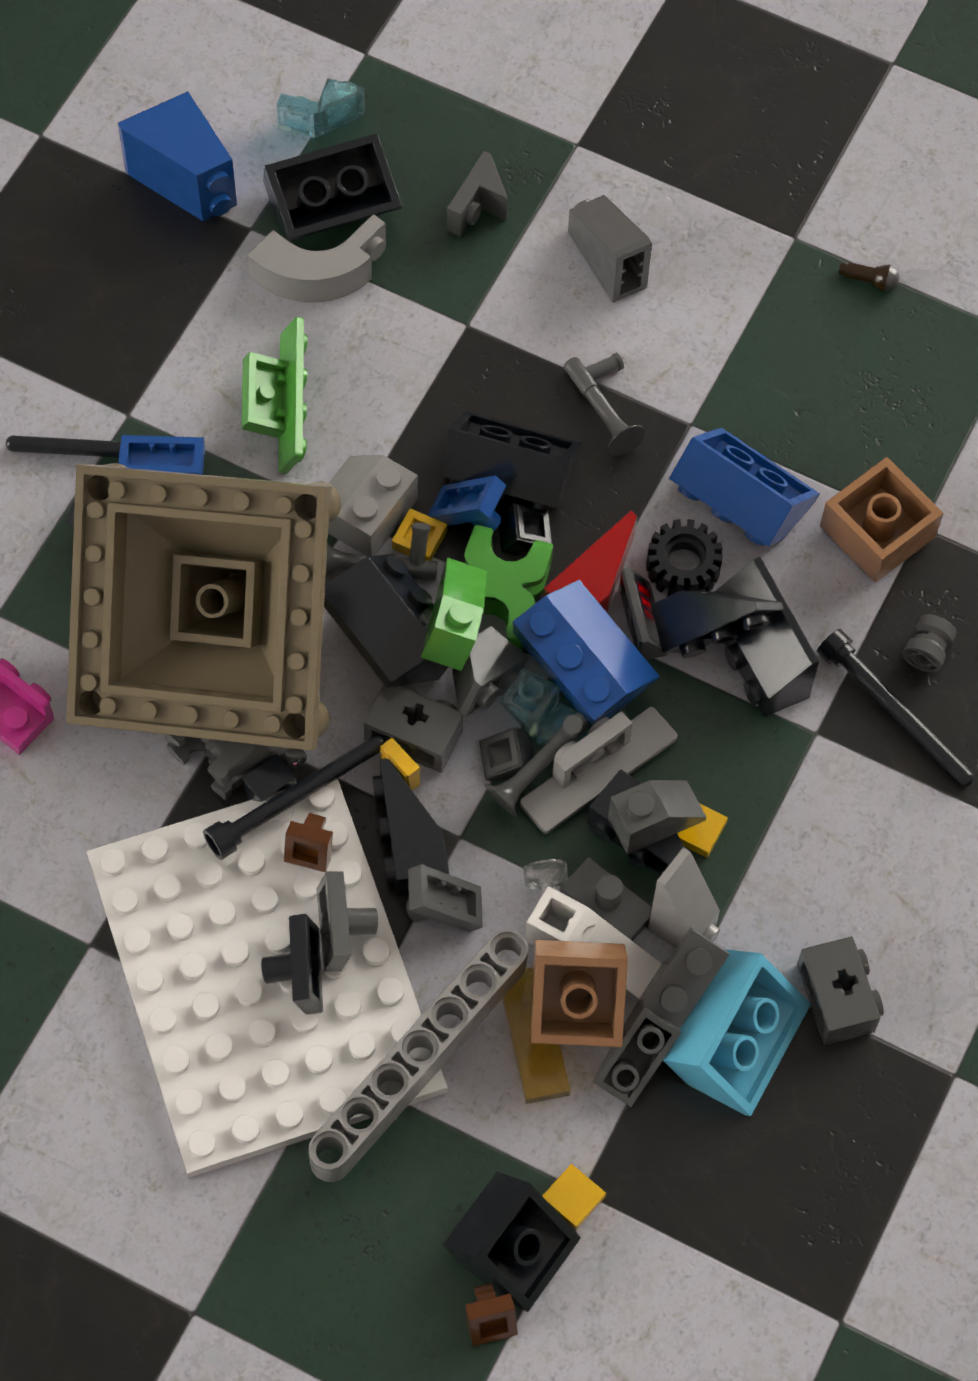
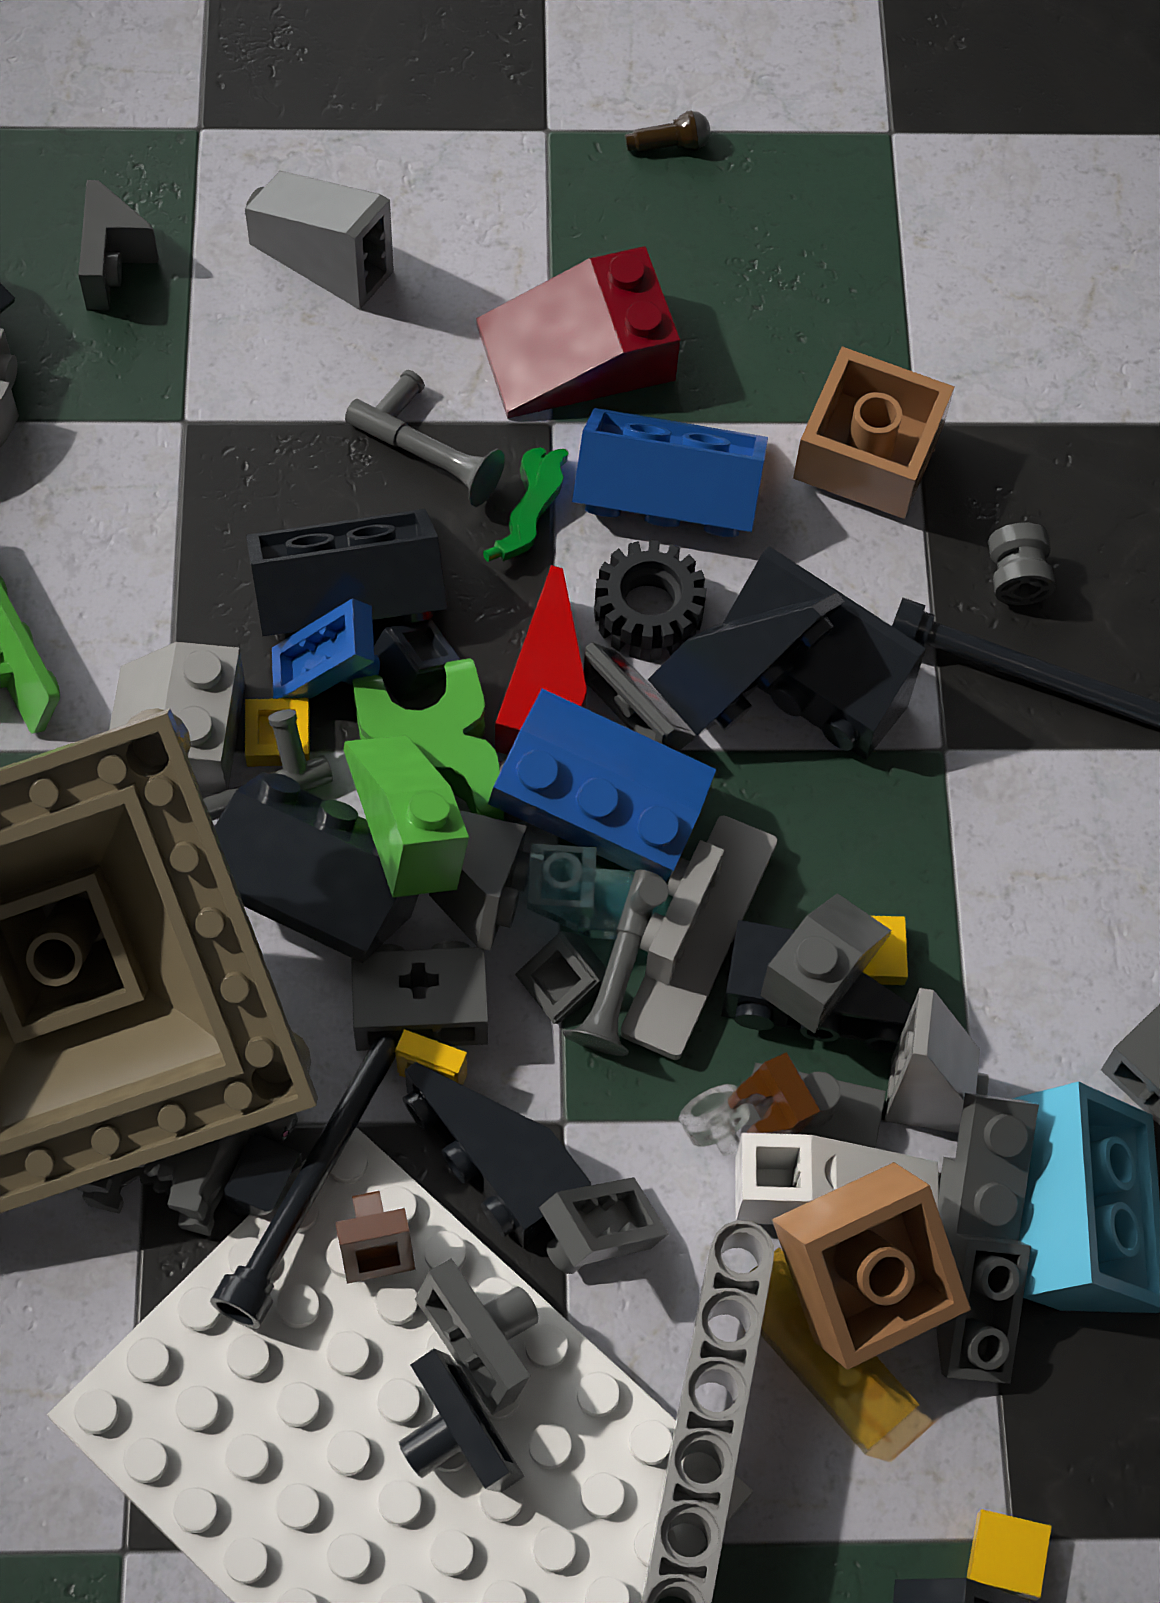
camera: 30 degrees left, 0 degrees up
(584, 877) = (778, 1098): none -> reddish brown tile
(660, 461) = (543, 483): none -> green hair
(736, 379) = (582, 335): none -> slope

